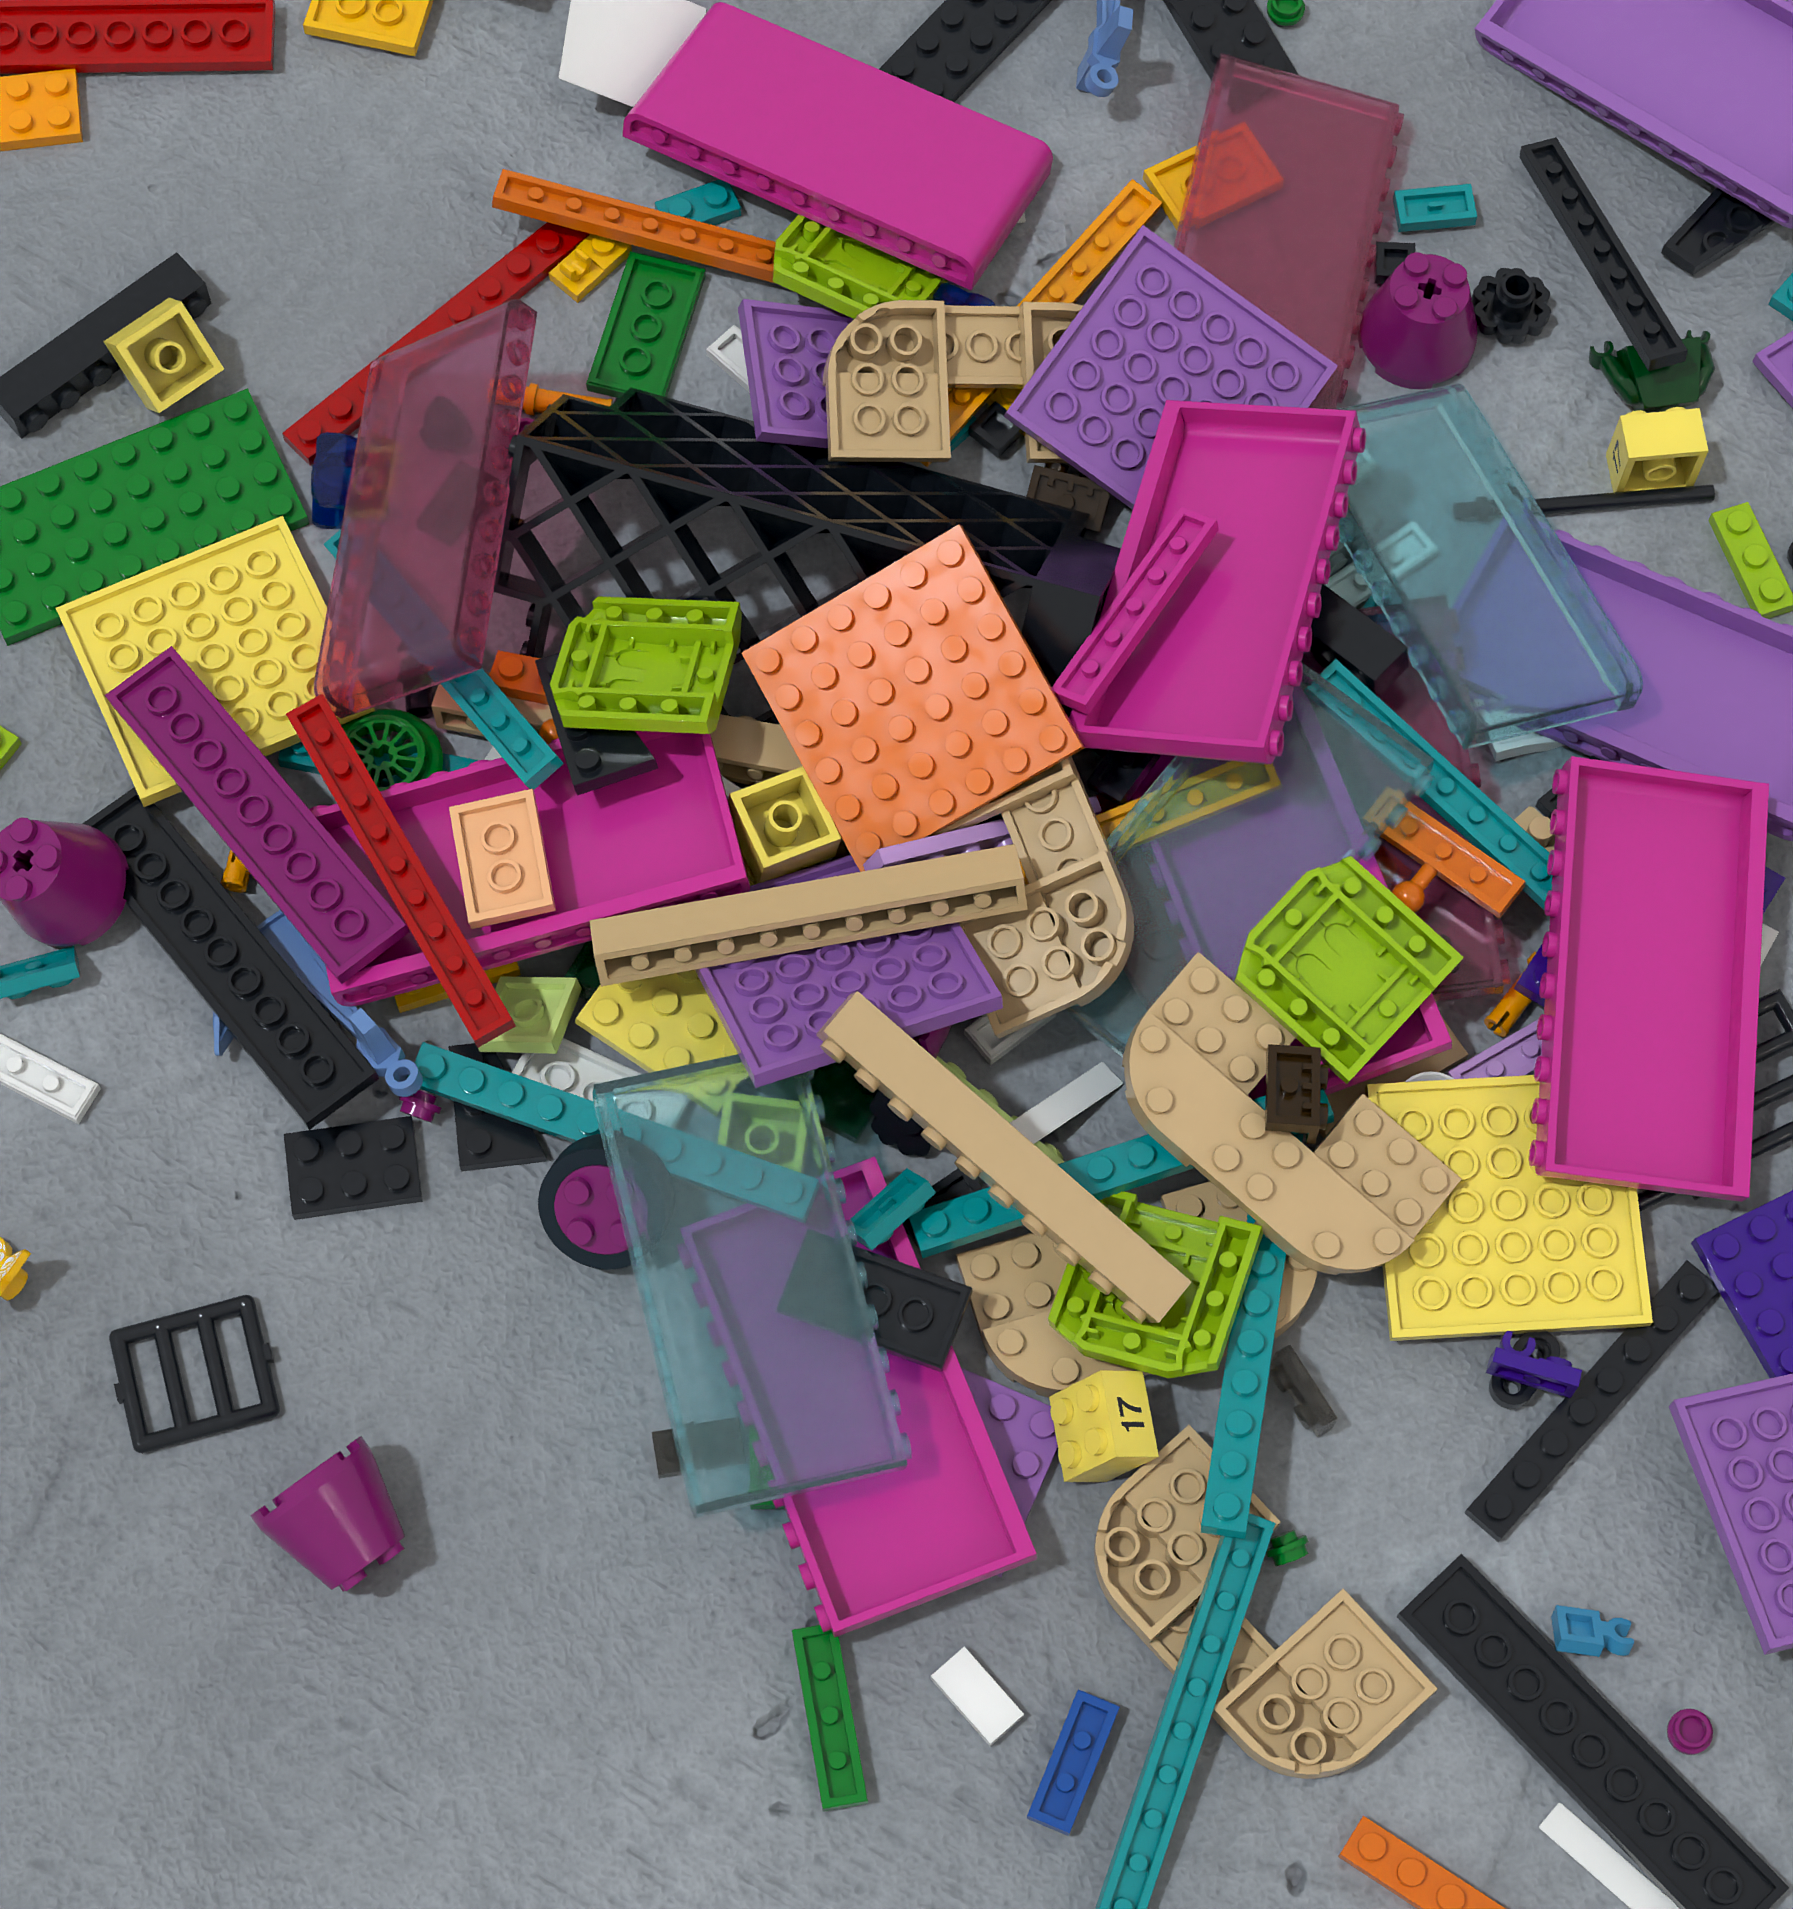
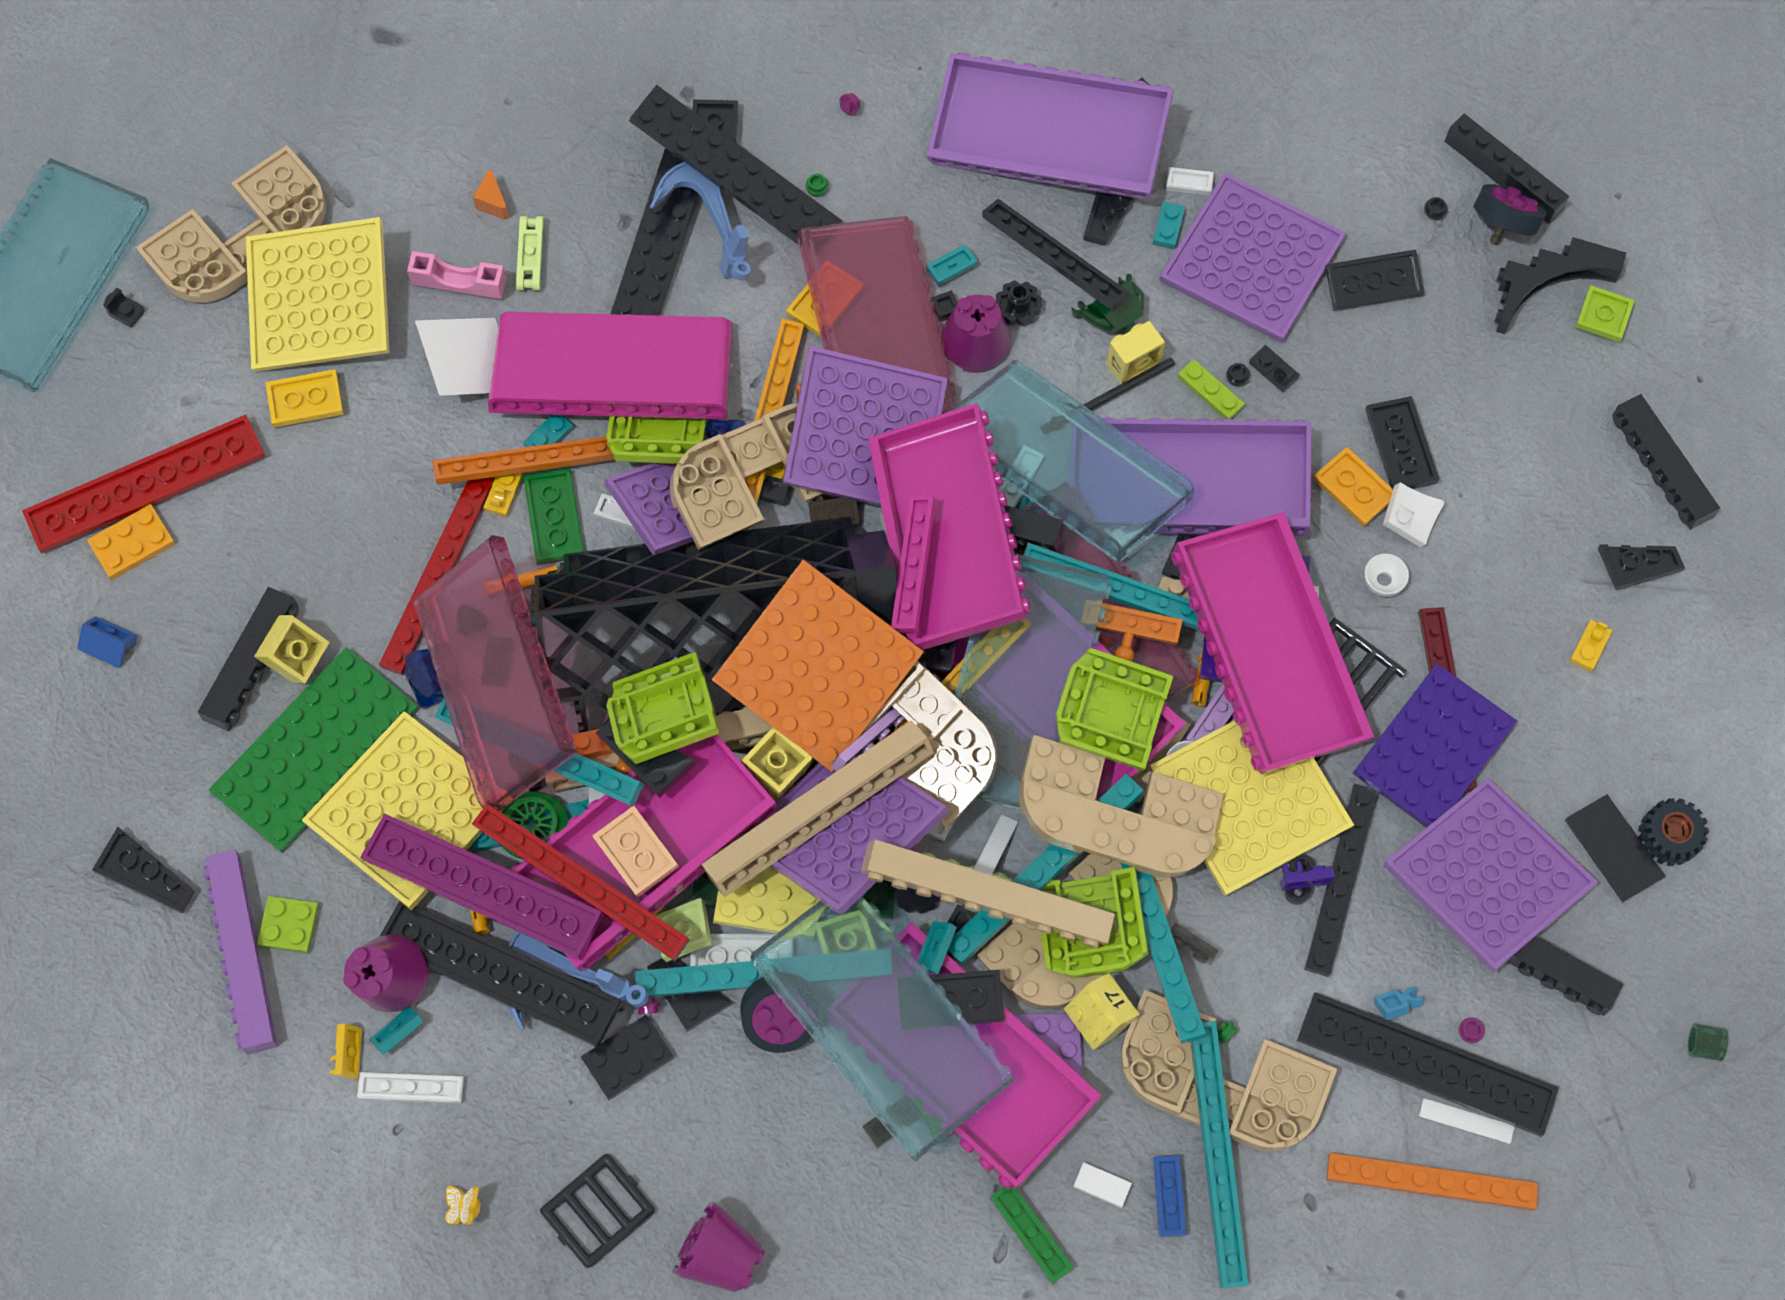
camera: 25 degrees left, 0 degrees up
(1294, 1089) = (1119, 786): dark brown bracket -> none

